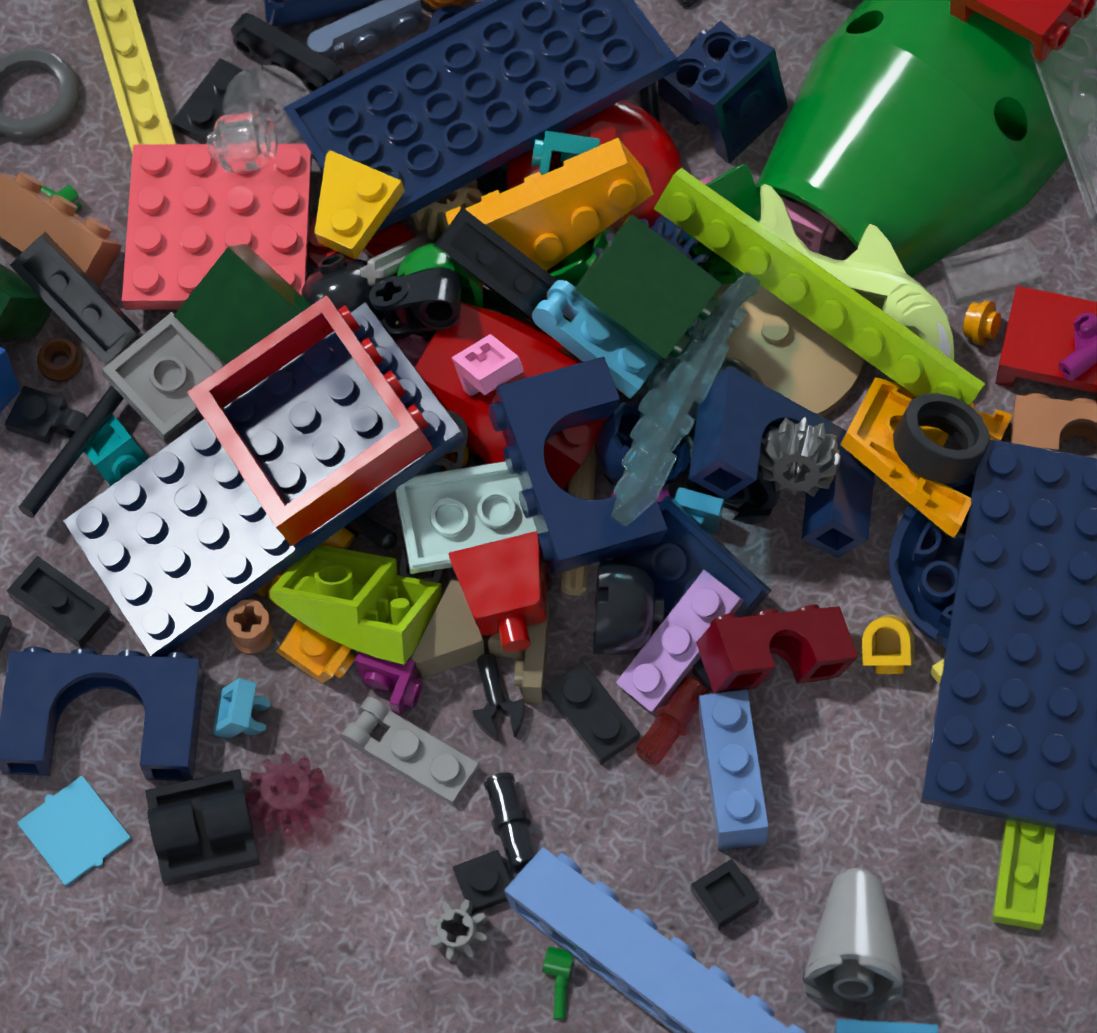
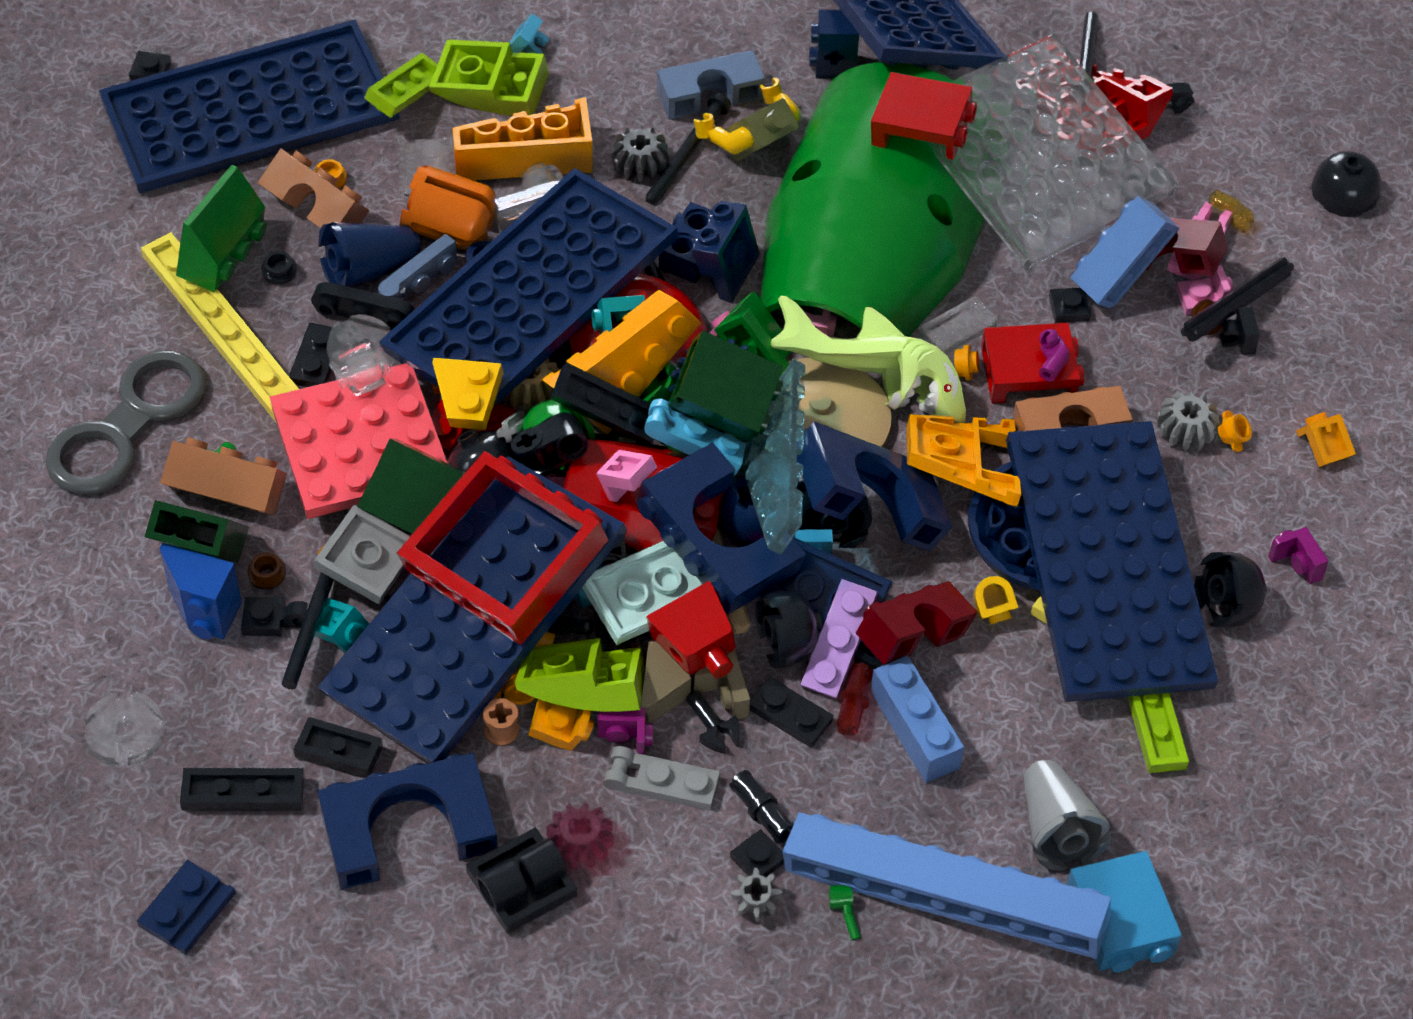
camera: 25 degrees left, 10 degrees down
(74, 830) = (416, 915): medium azure piece -> none
(75, 298) = (267, 517): black plate -> none
(235, 709) = (514, 785): medium azure tile -> none
(724, 894) = (946, 810): black plate -> none
(799, 457) = (886, 477): dark grey gear -> none
(813, 291) = (851, 364): lime plate -> none
(928, 457) = (980, 439): black tyre -> none

